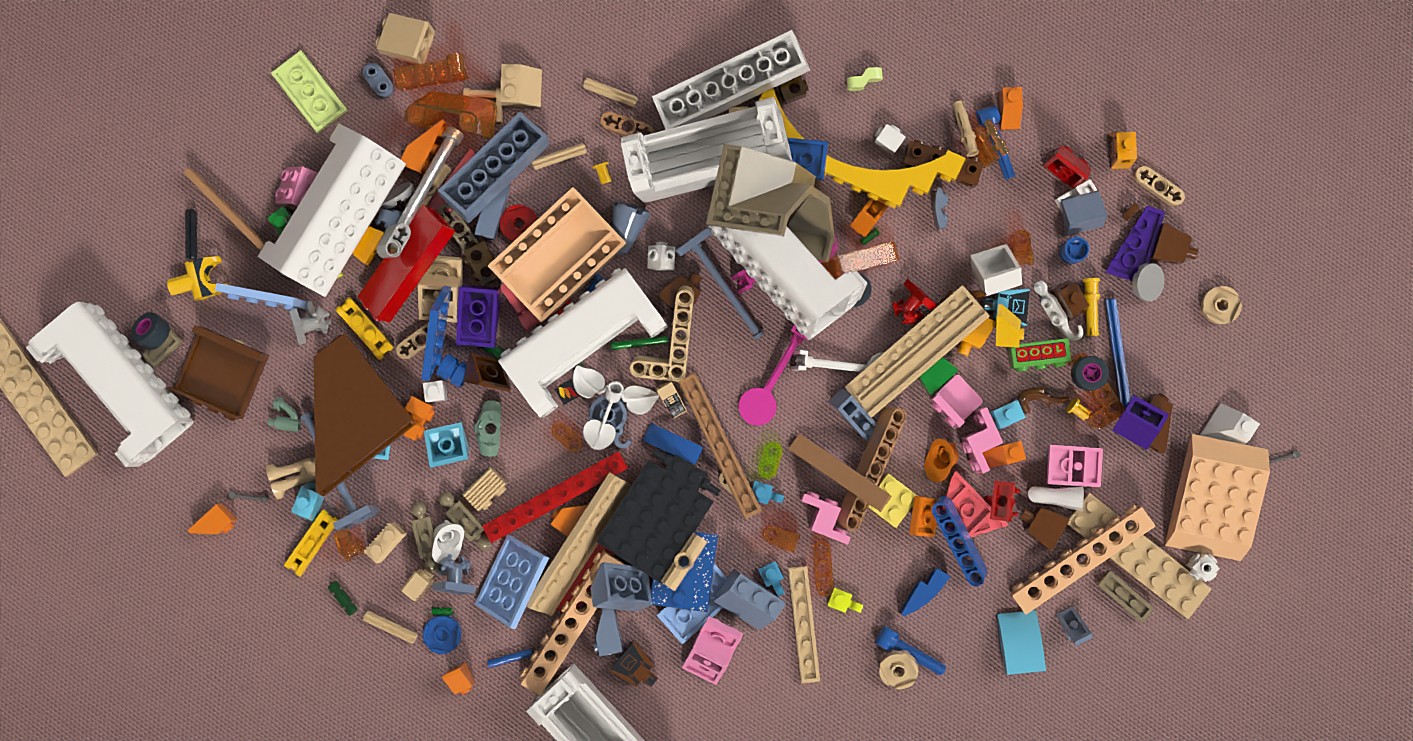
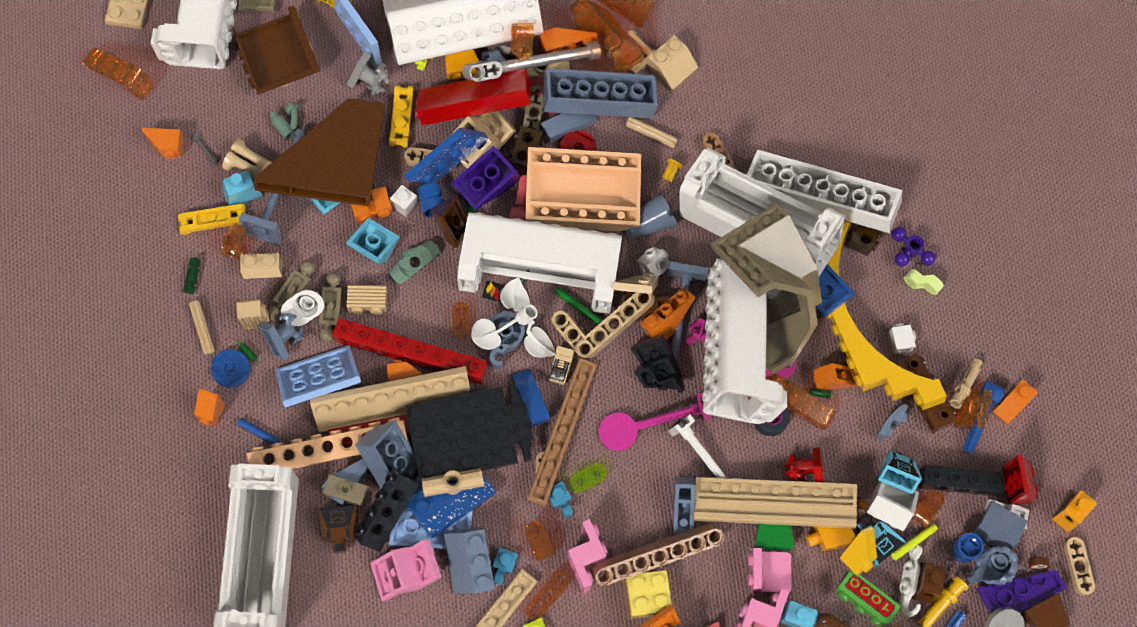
camera: 40 degrees right, 15 degrees down
(121, 506) = (119, 71): none -> clear orange beam
(399, 187) = (522, 40): none -> clear orange piece
(610, 92) = (730, 124): tan axle -> none
(615, 640) = (345, 490): none -> dark tan plate
(658, 625) = (386, 520): none -> black brick
(671, 290) = (641, 283): none -> tan wing
(712, 291) = (668, 315): none -> orange slope
(739, 332) = (657, 364): none -> black slope
(833, 76) = (902, 258): none -> dark purple piece
(840, 472) = (631, 533): medium nougat tile -> none
(940, 459) = (716, 601): orange piece -> none
(980, 243) = (900, 472): none -> medium azure torso
(1026, 205) = (961, 480): none -> black brick
(1034, 282) = (914, 541): none -> neon yellow bar
(1105, 246) = (995, 566): none -> sand blue hair

